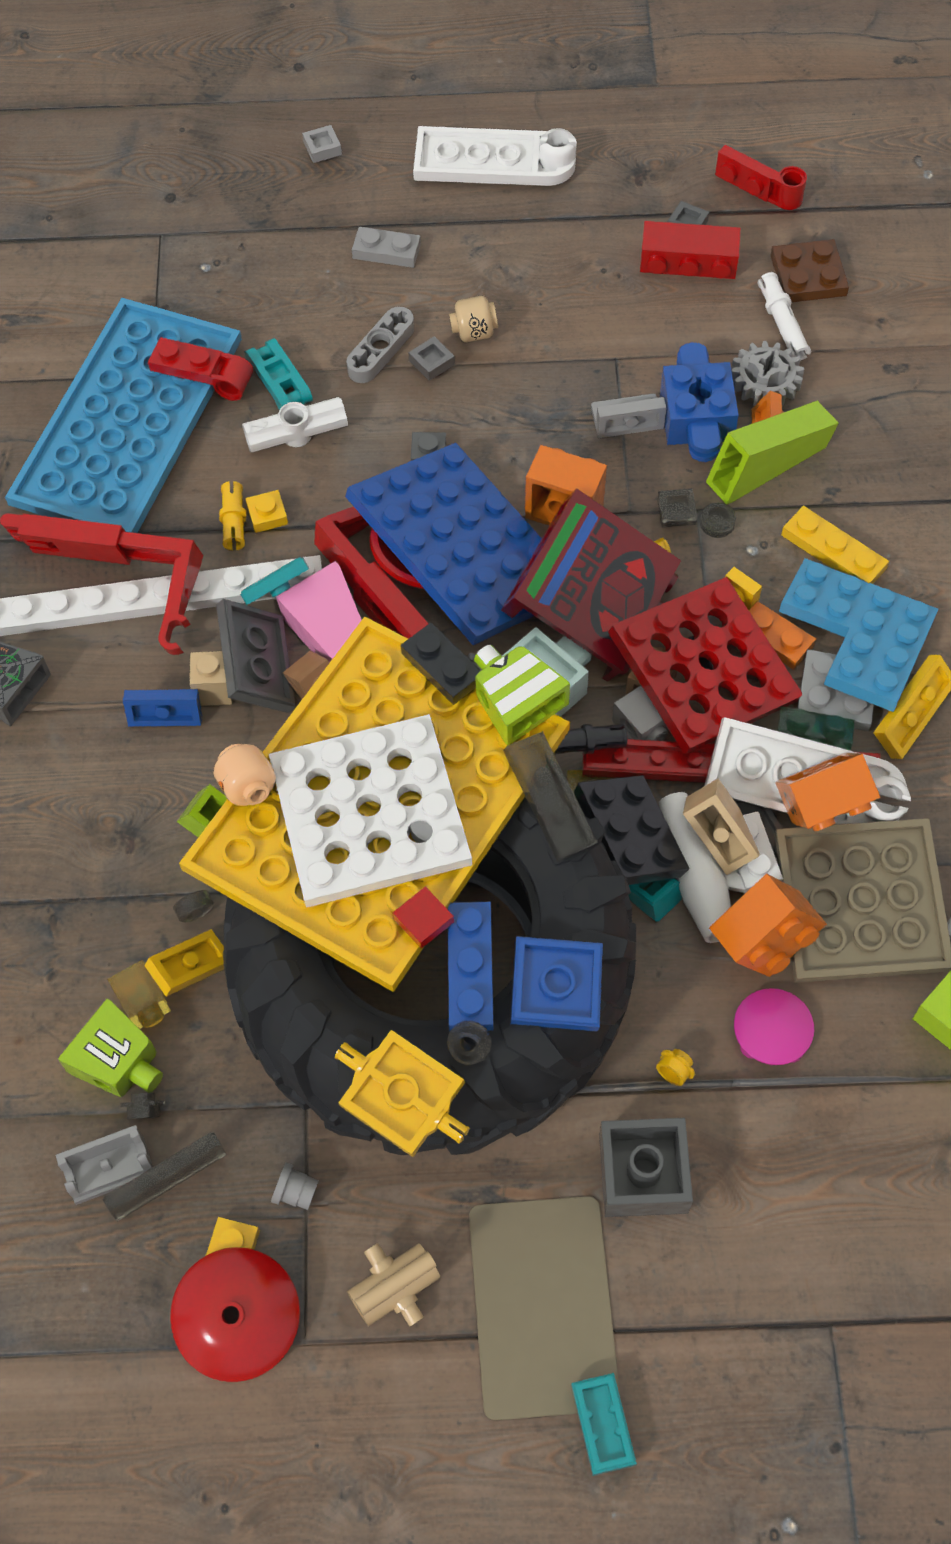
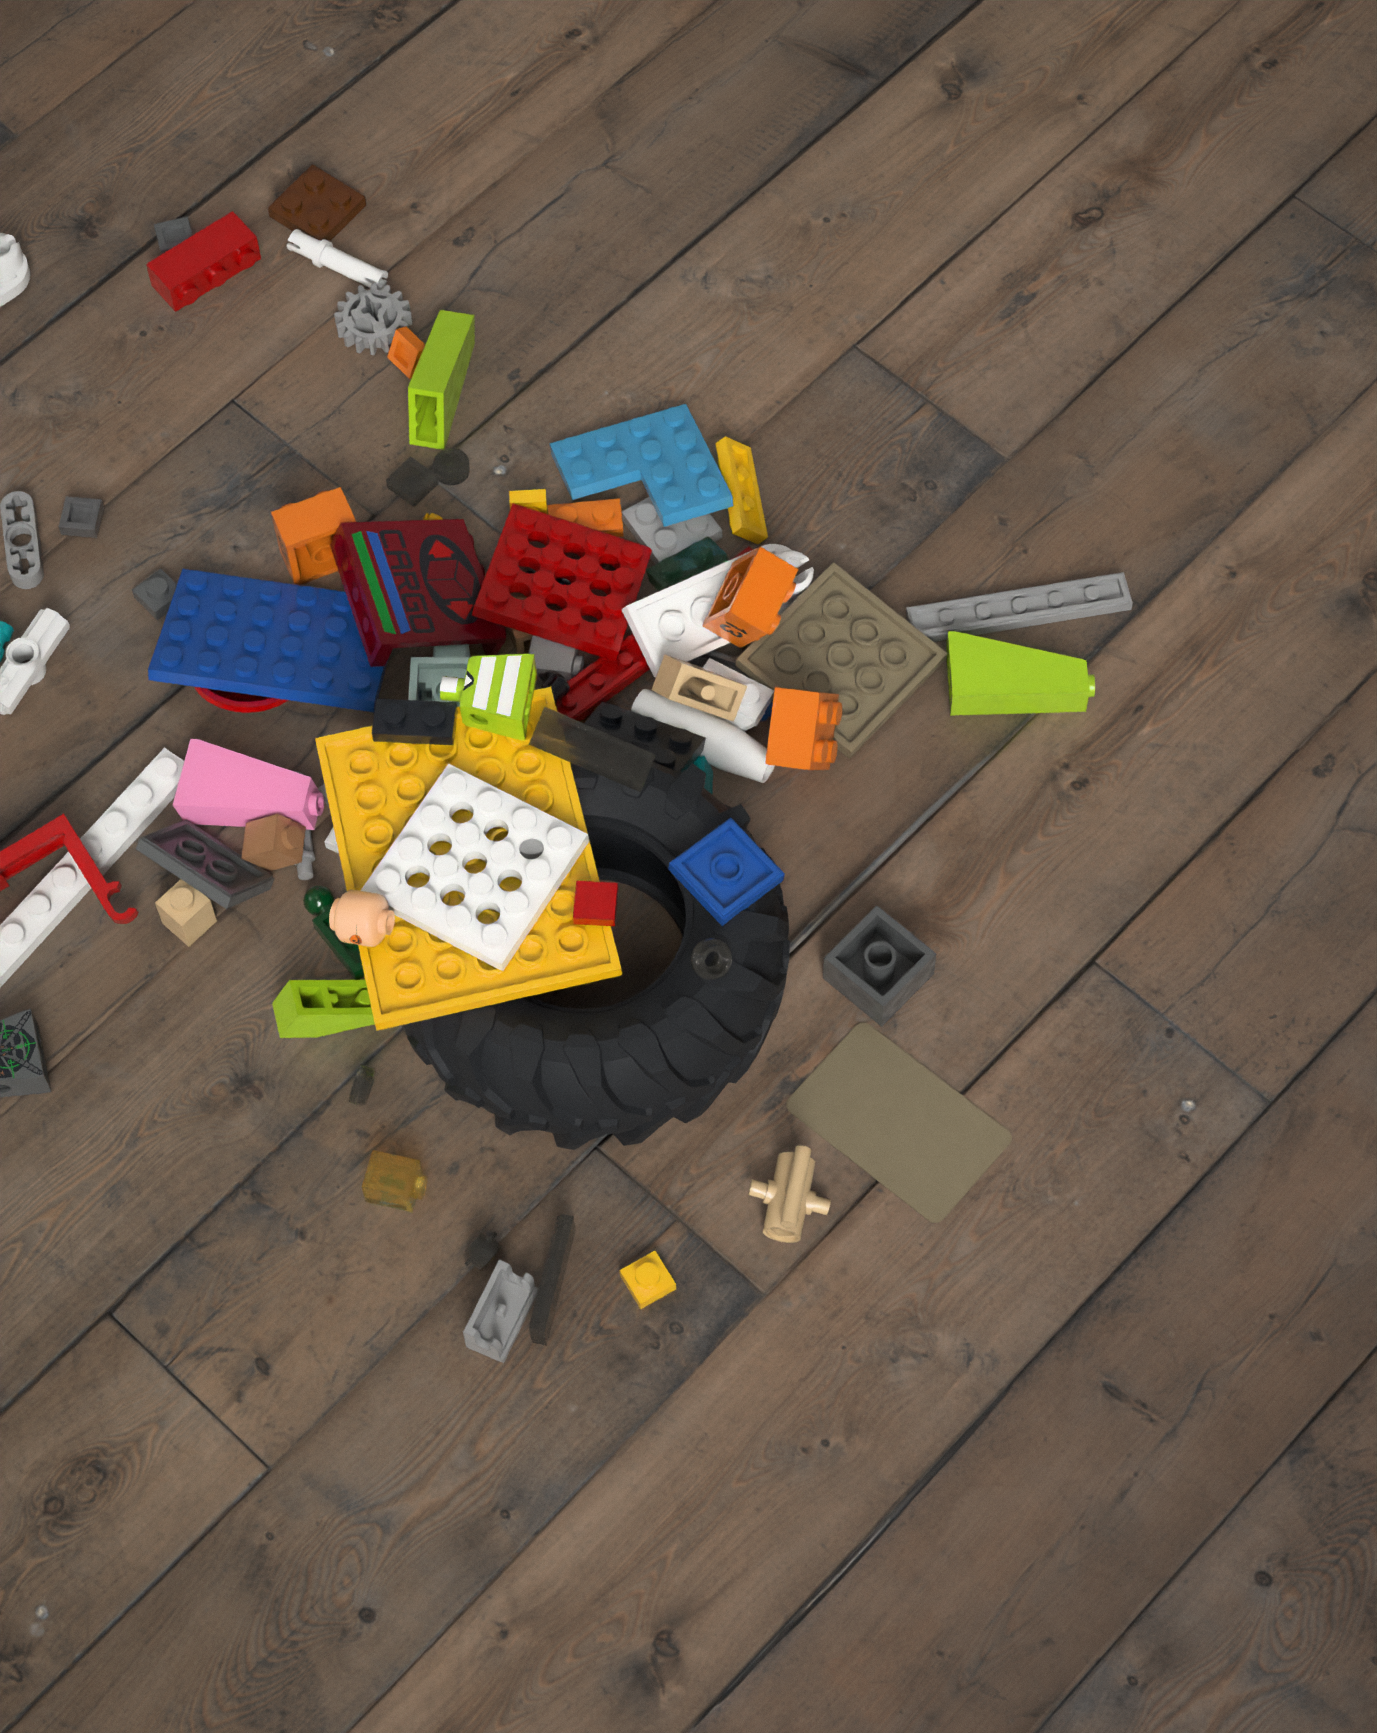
camera: 45 degrees left, 0 degrees up
(112, 1053) = (419, 1236): lime torso -> none
(162, 707) = (170, 966): blue plate -> none
(186, 962) = (407, 1124): yellow plate -> none
(232, 515) = (53, 776): yellow pin -> none
(266, 511) = (77, 750): yellow plate -> none
(266, 1309) = (685, 1339): red dish -> none
(275, 582) = (158, 794): teal plate -> none
(294, 1188) = (652, 1202): light grey piece -> none
(371, 586) = (268, 739): red hinge -> none
(401, 1093) = (700, 1031): yellow plate -> none
(470, 964) = (657, 911): blue plate -> none
(474, 319) = (85, 456): tan head -> none
(603, 1424) = (1015, 1152): teal plate -> none
(628, 415) = (294, 437): light grey panel -> none
(675, 1066) = (828, 885): yellow plate -> none
(698, 402) = (344, 383): blue brick -> none
(773, 1027) = (866, 801): dark pink dish -> none
(779, 188) = (199, 158): red plate -> none
(833, 546) = (560, 417): yellow plate -> none

